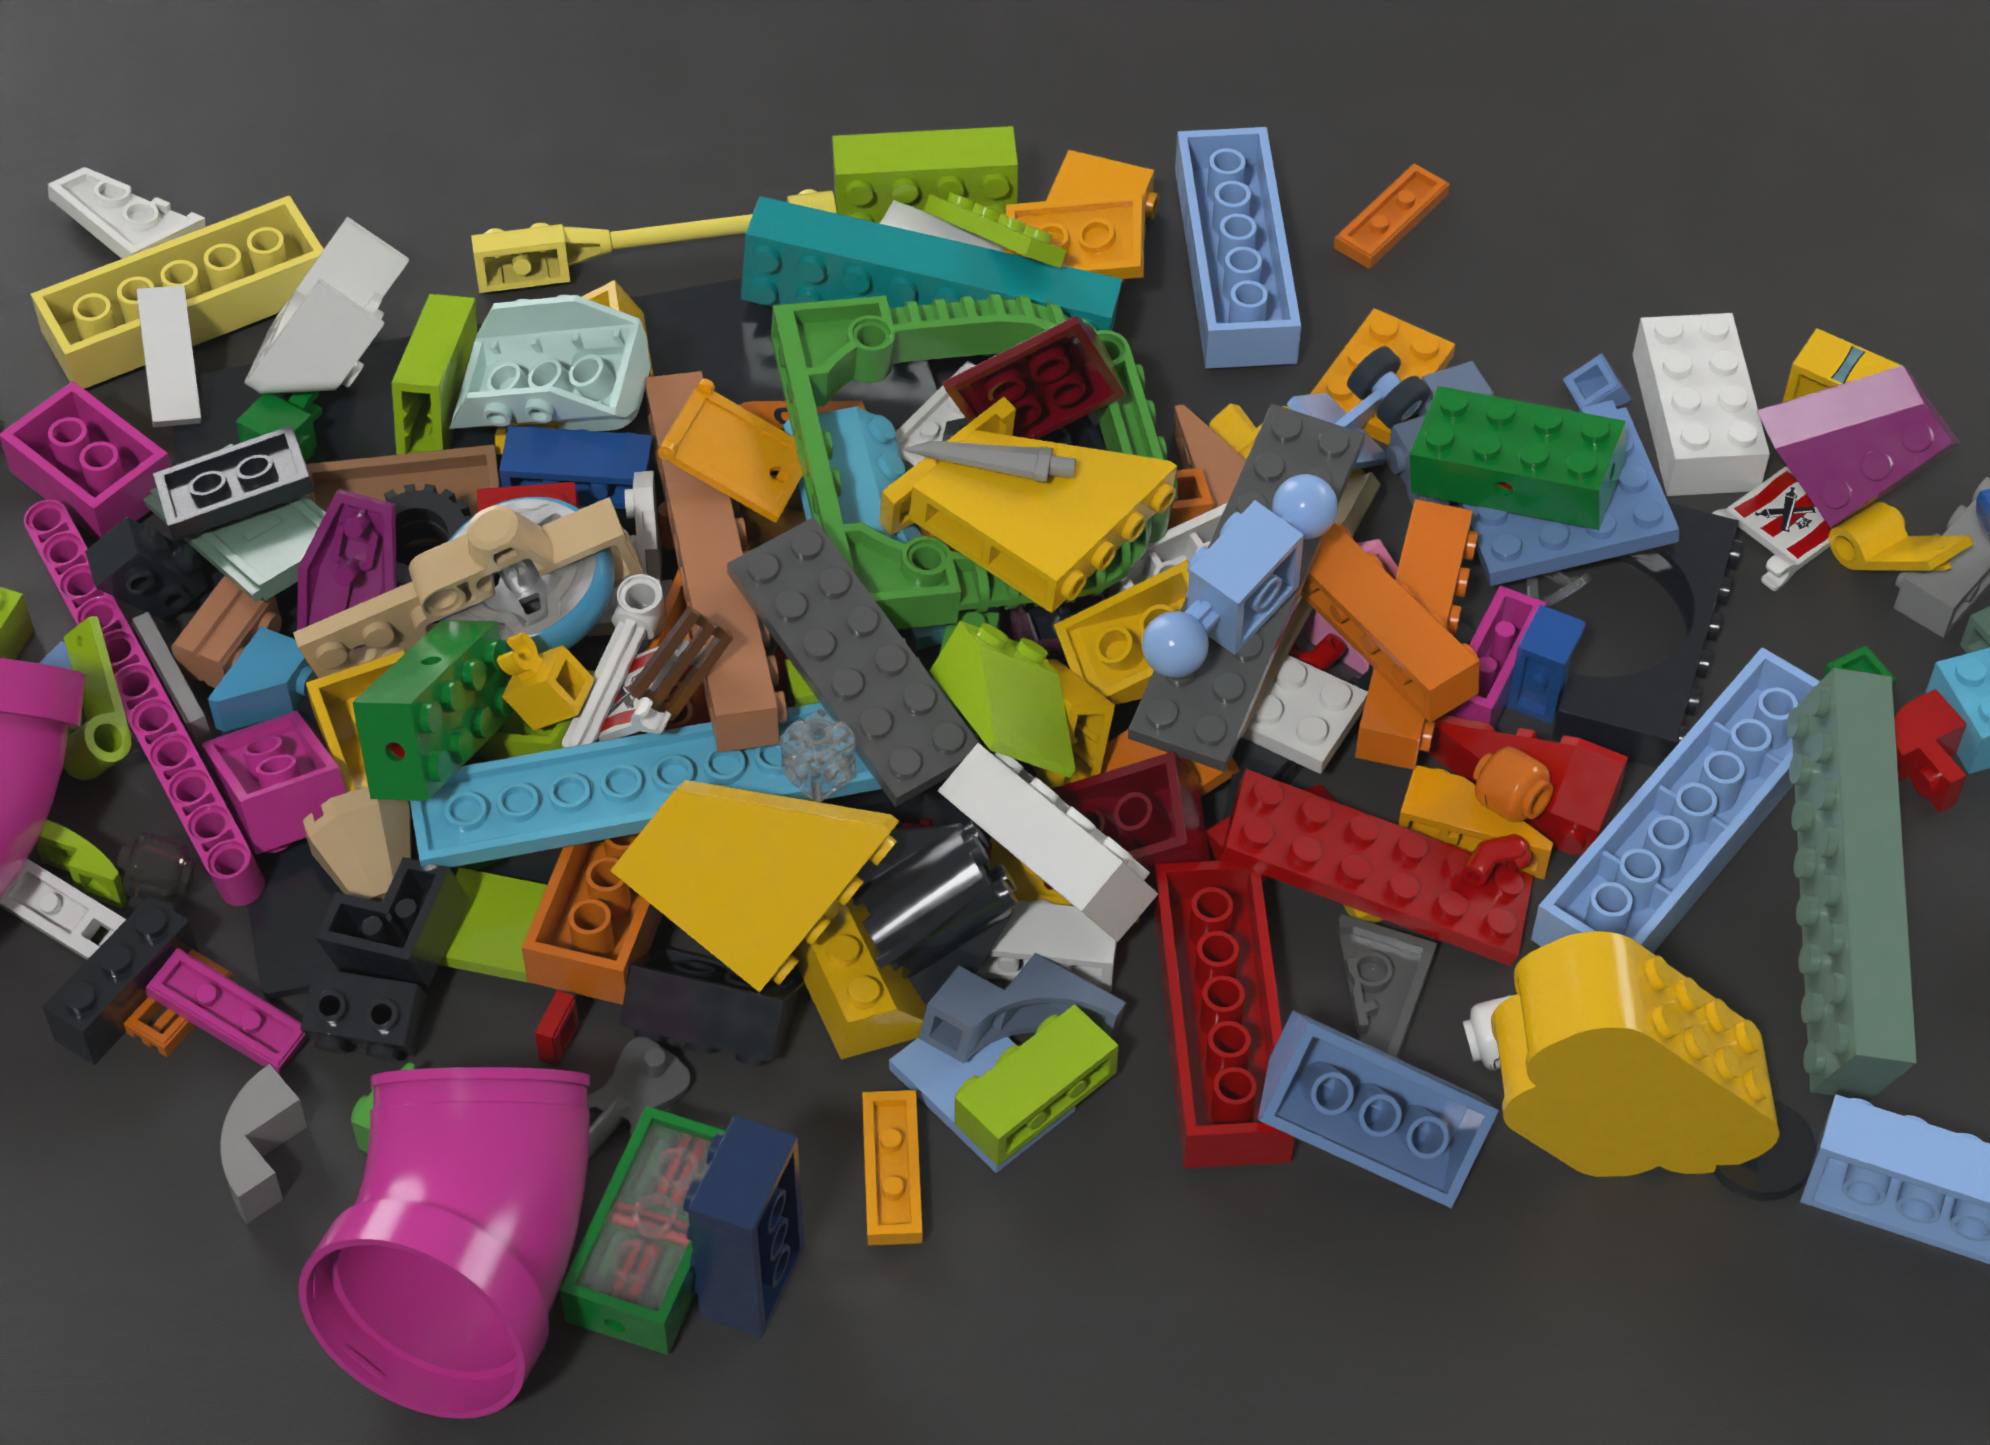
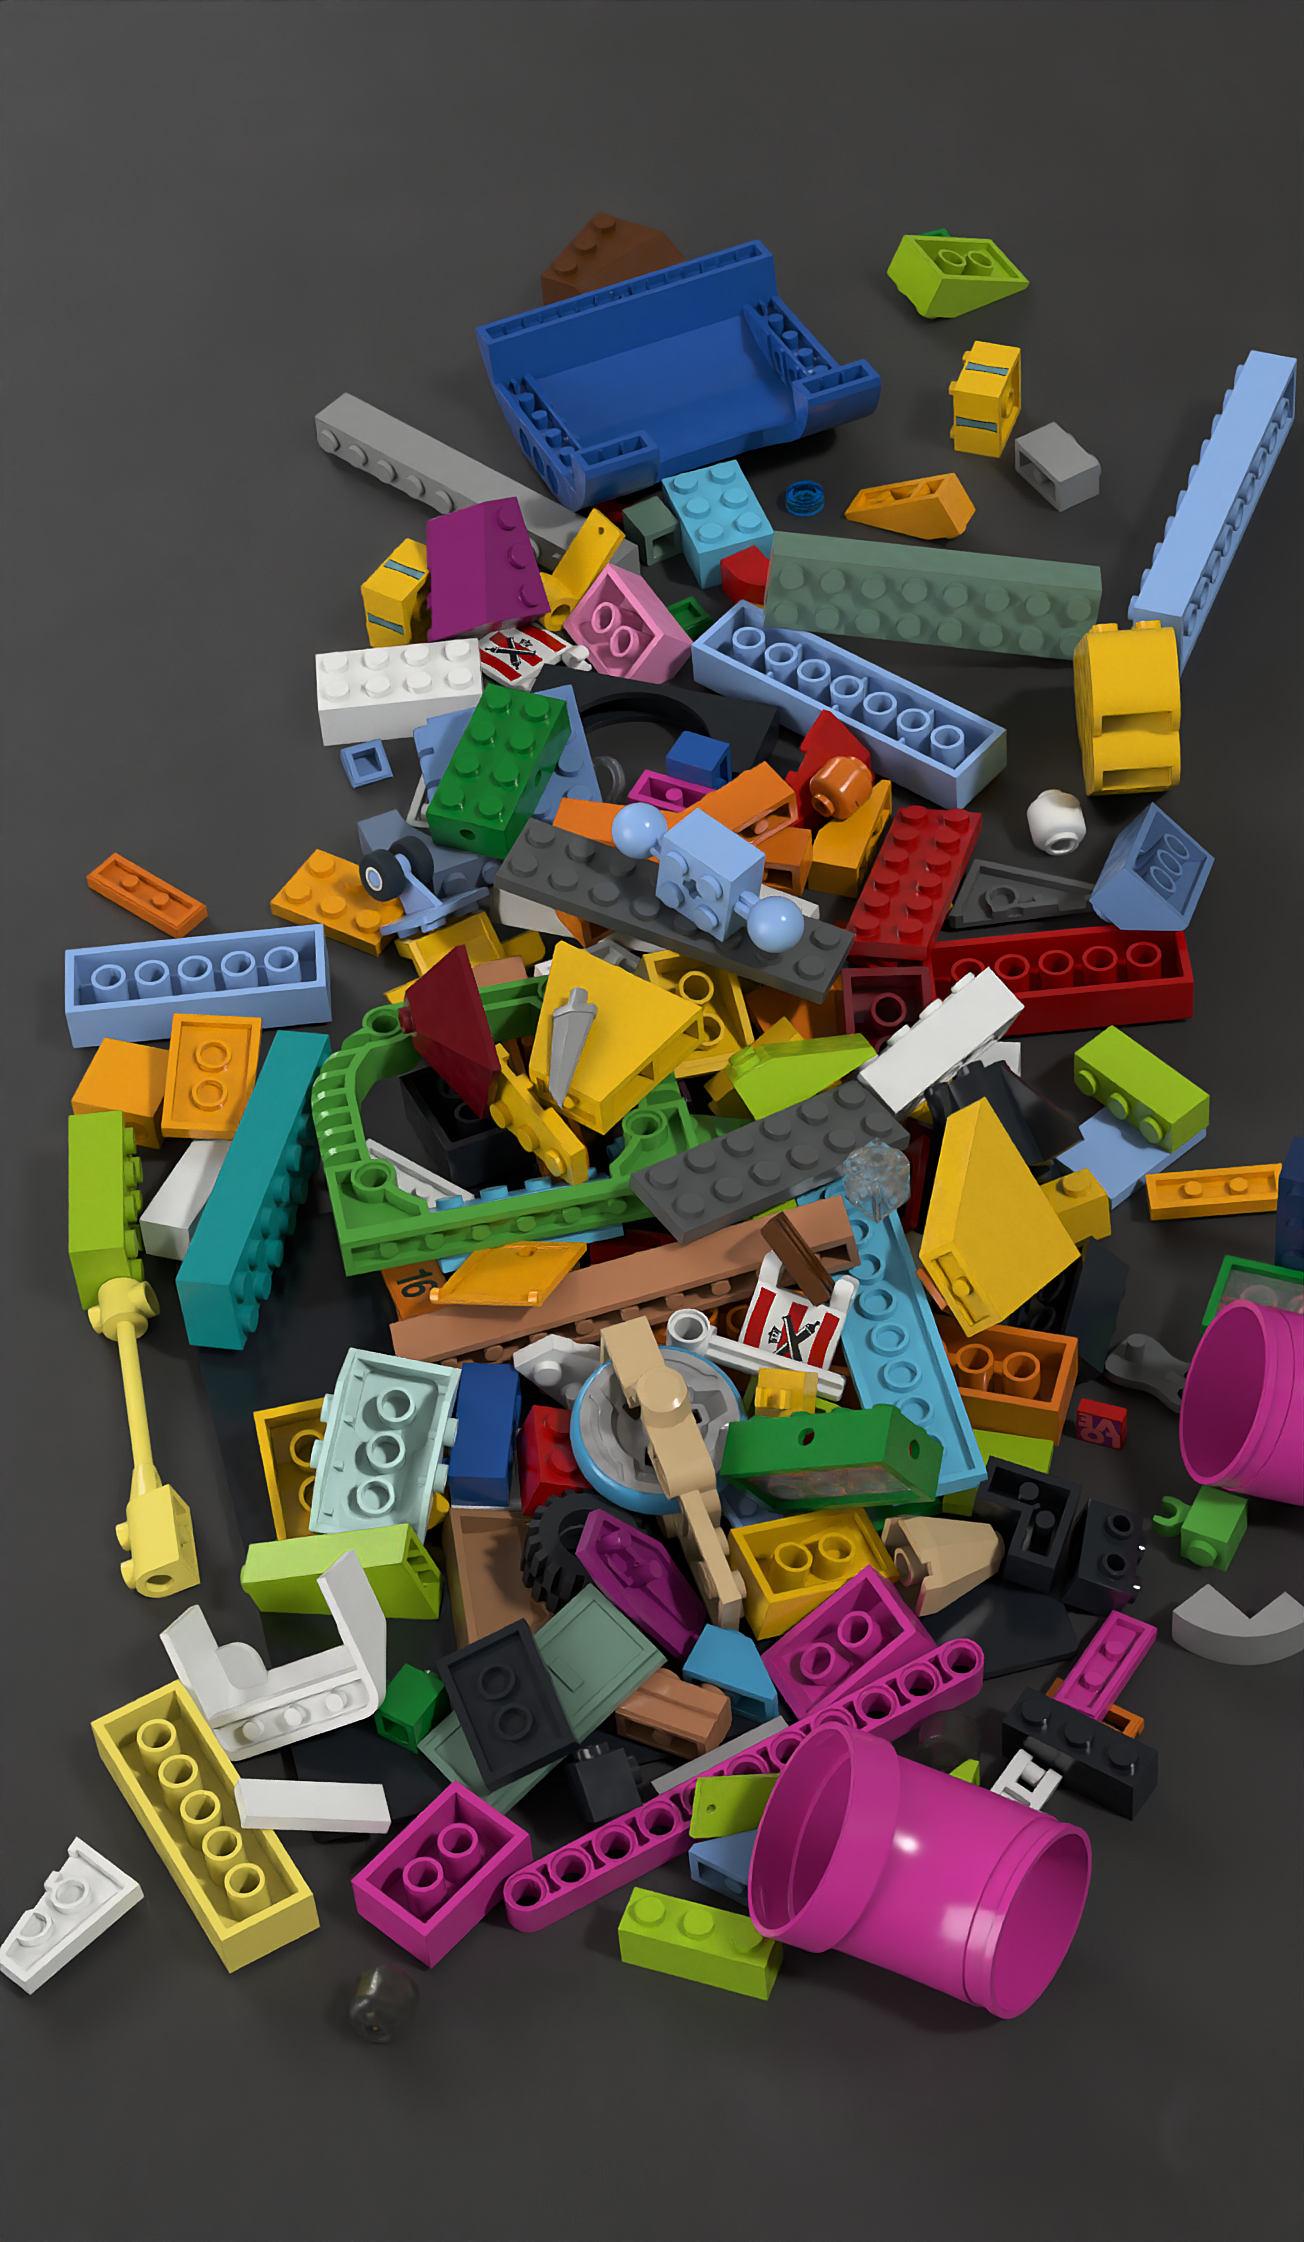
camera: 85 degrees left, 5 degrees down
(974, 1012) = (1055, 1080): sand blue arch -> none
(996, 227) = (195, 1134): lime plate -> none
(1489, 852) = (898, 812): red arm -> none
(1822, 613) = (628, 629): none -> bright pink slope

